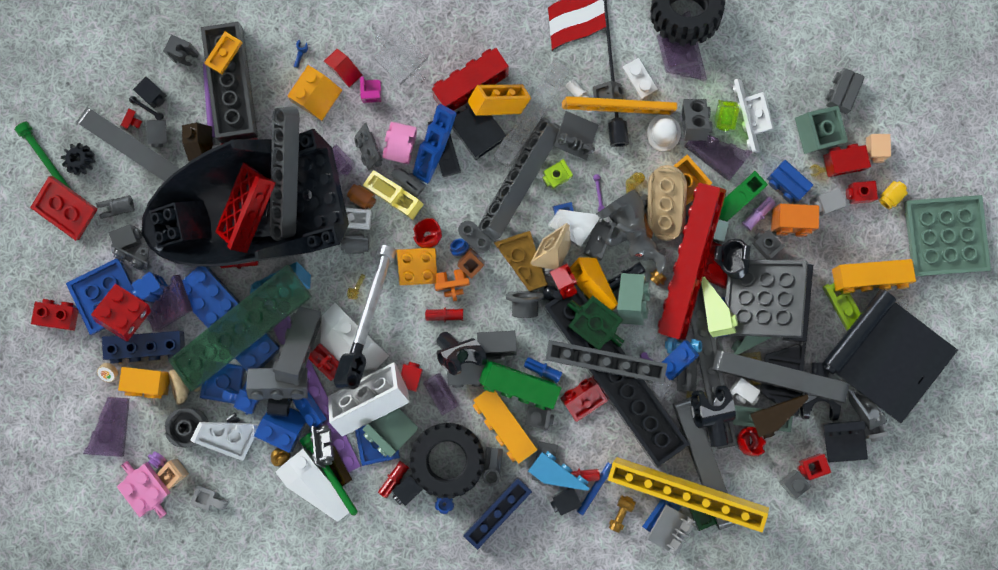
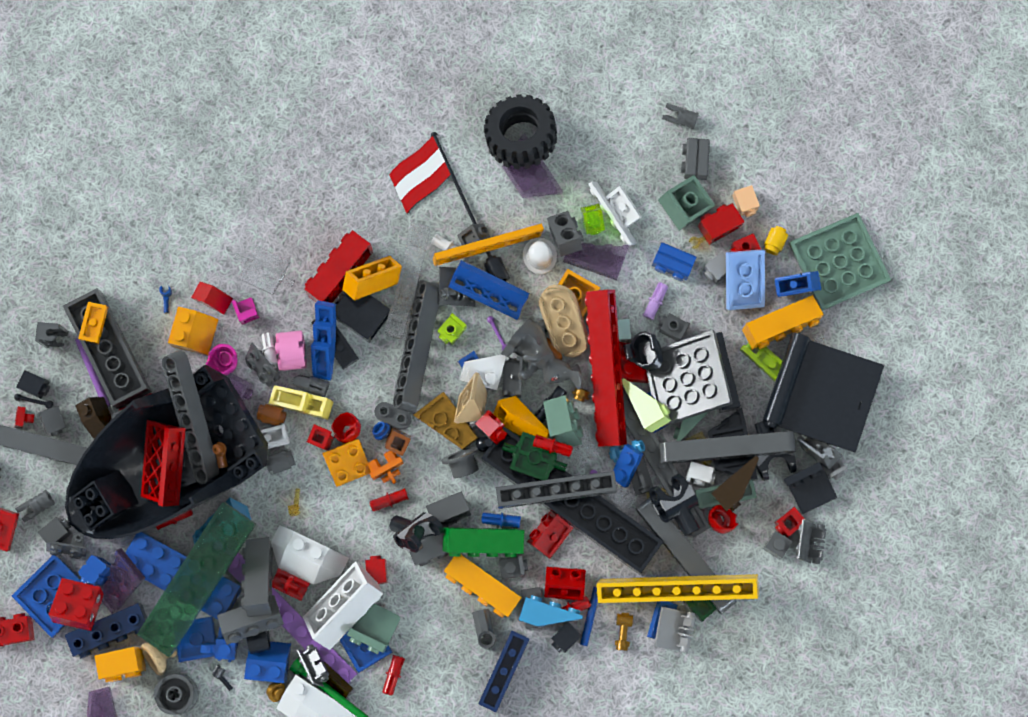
camera: 15 degrees left, 5 degrees down
(107, 372) = (80, 668): tile -> none
(226, 438) = (217, 690): white wing -> none
(302, 215) = (220, 452): none -> dark orange arm
(310, 411) = (290, 637): blue plate -> none
(333, 129) = (223, 359): none -> dark pink hair
(353, 364) = (316, 576): piece -> none
(380, 134) = (269, 349): none -> white axle
(400, 234) = (320, 437): none -> red brick
(406, 491) = (409, 681): black brick -> none
(428, 479) = (412, 629): black tyre -> none
(441, 394) = (411, 576): clear purple brick -> none
(444, 509) = (445, 682): blue plate -> none
(582, 450) = (565, 583): none -> red brick
(607, 146) = (490, 287): none -> blue fence
(616, 319) = (552, 445): none -> red axle
(633, 181) = (527, 310): clear yellow arm -> none
(639, 78) = (499, 212): white plate -> none
(742, 195) = (632, 291): green slope -> none
(795, 219) = (690, 295): orange brick -> none
(820, 498) = (808, 533): none -> dark grey hinge
(848, 46) = (684, 117): none -> dark grey hinge
(852, 222) = (745, 279): none -> light blue plate
(901, 243) = (797, 284): none -> blue brick

